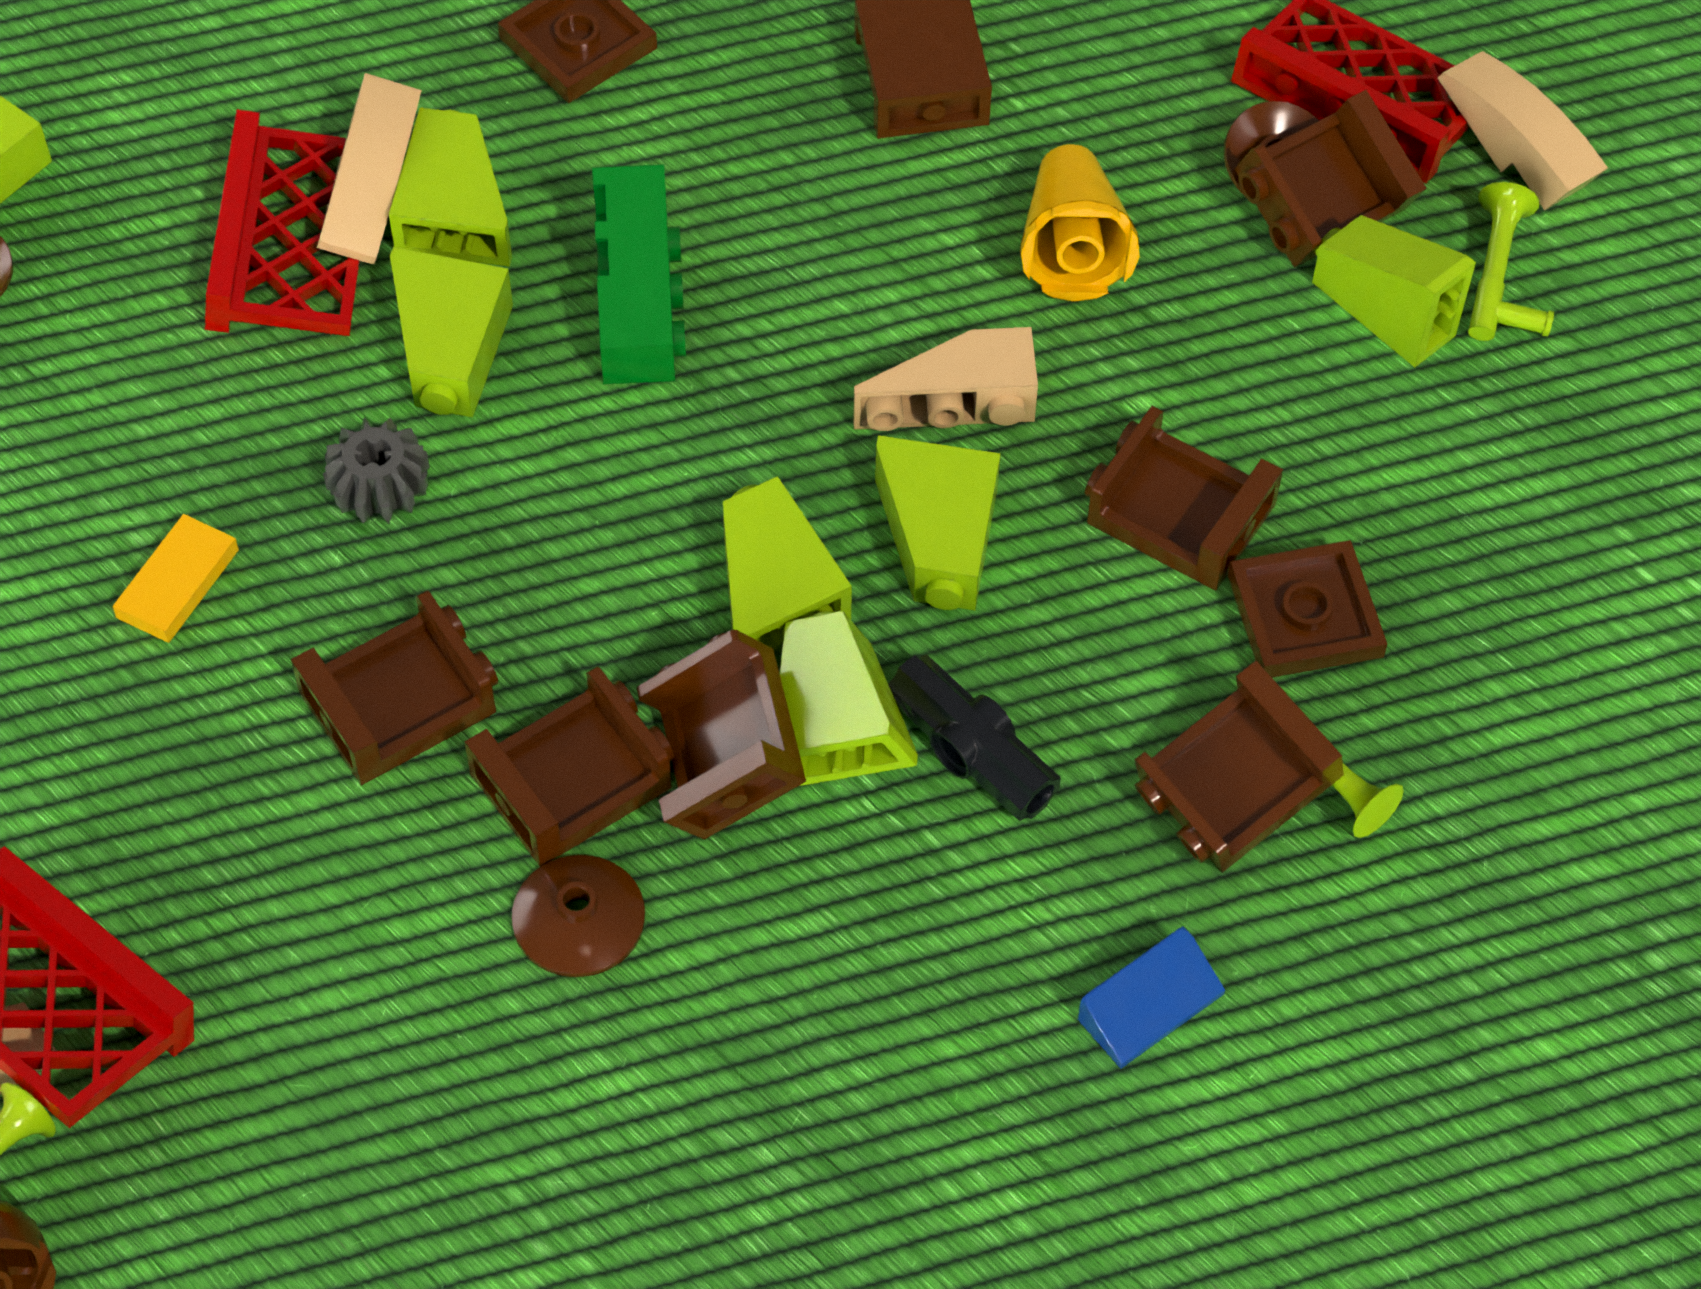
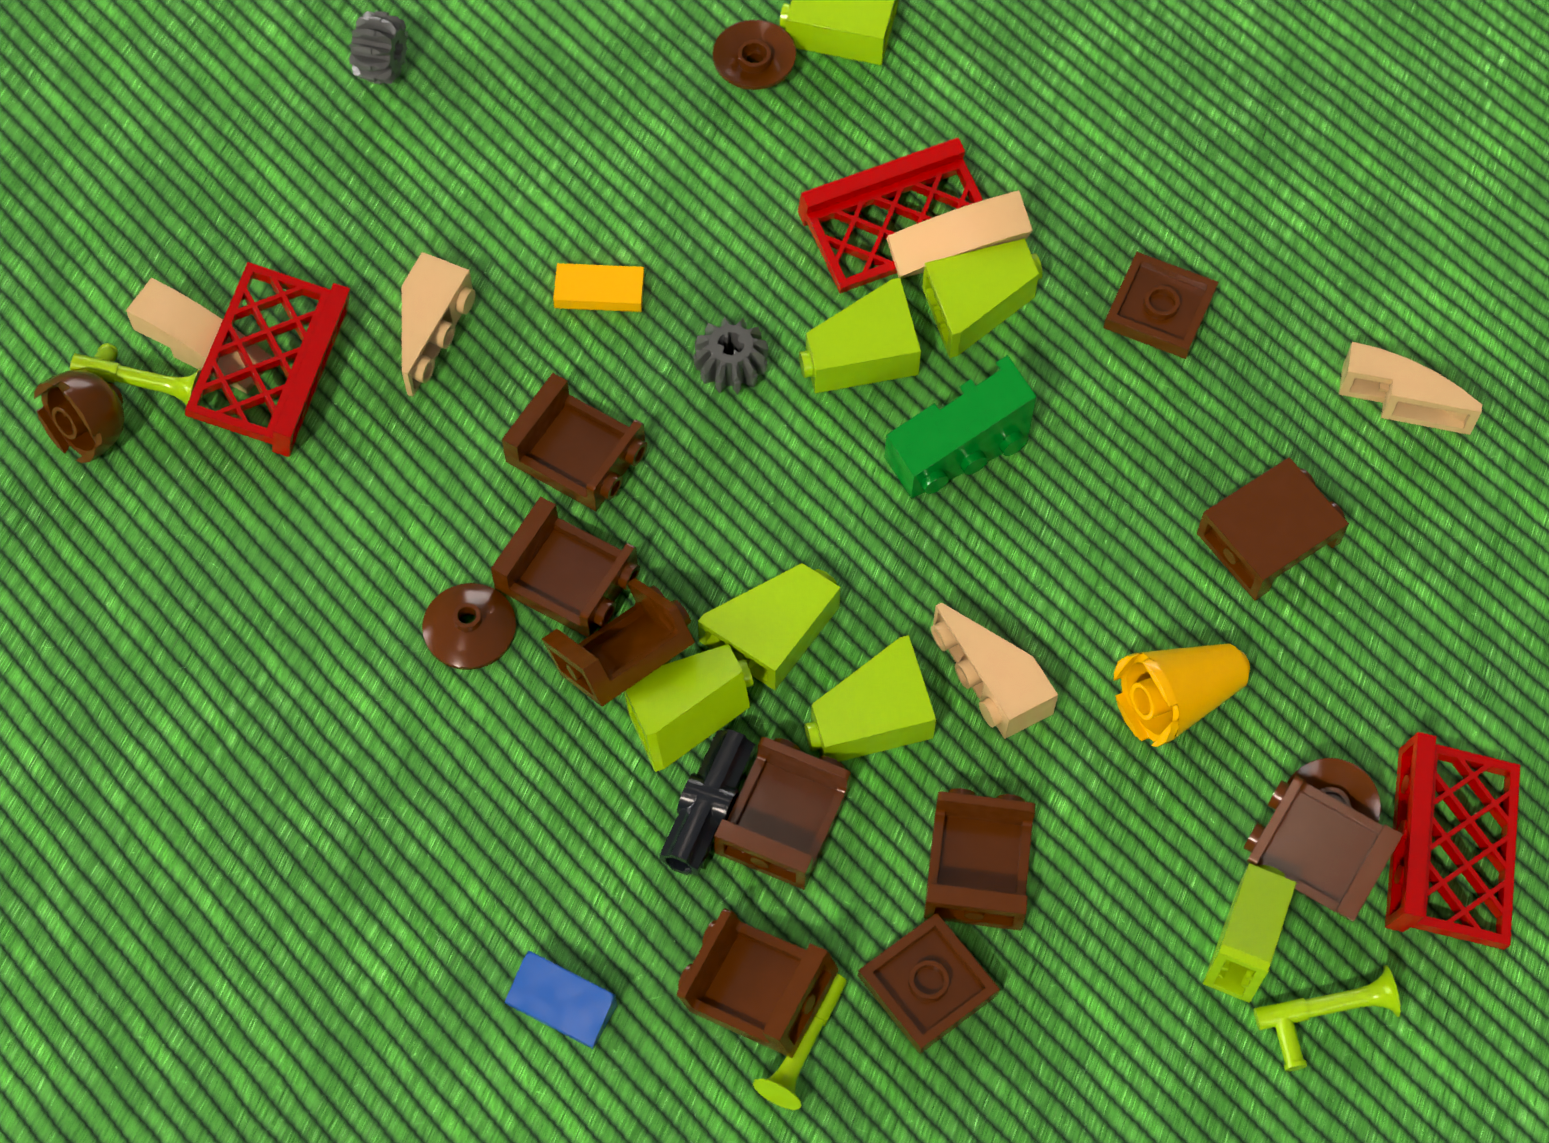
camera: 65 degrees right, 5 degrees up
(88, 780) = (432, 303): none -> tan slope
(1027, 662) = (784, 812): none -> reddish brown panel
(1522, 128) = (1467, 972): tan slope -> none

